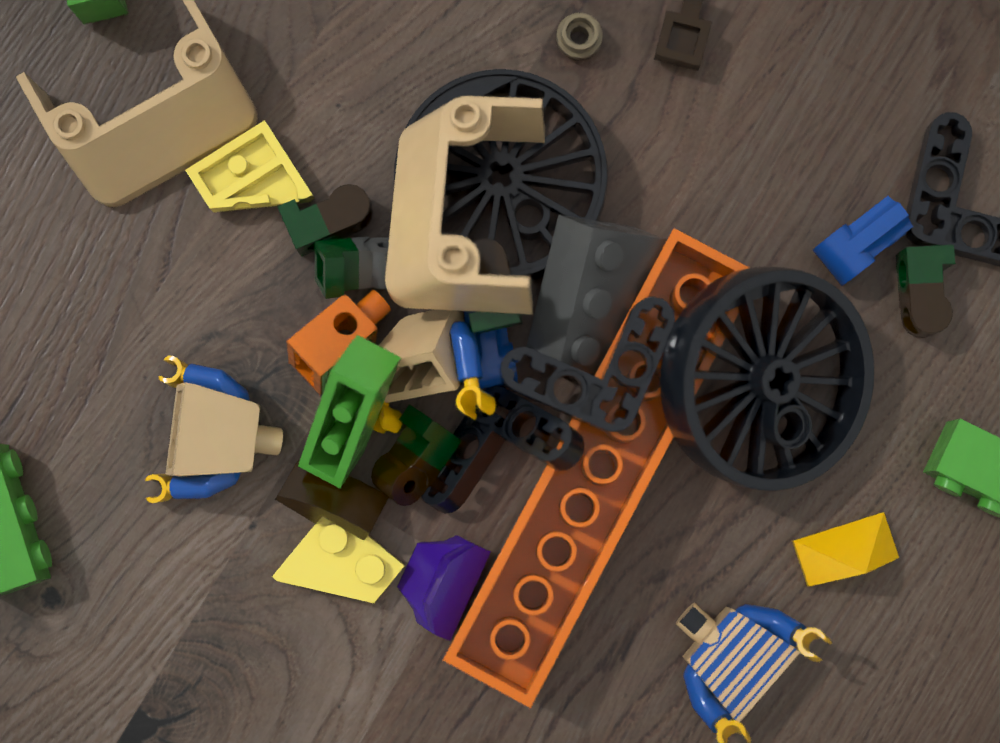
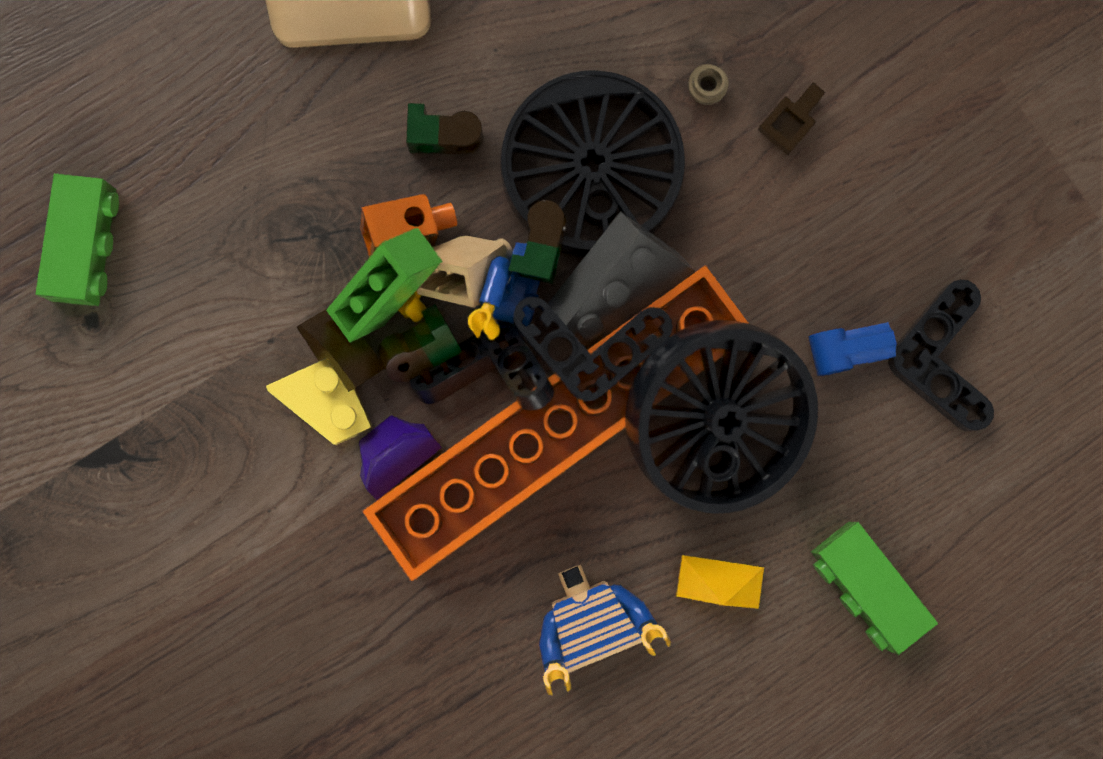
camera: 20 degrees right, 0 degrees up
(210, 434) = (272, 253): tan torso -> none
(249, 174) = (399, 69): light yellow wing -> none
(350, 264) = (449, 178): dark green leg -> none
(441, 269) = (498, 199): tan windscreen -> none
(921, 288) = (875, 416): leg -> none

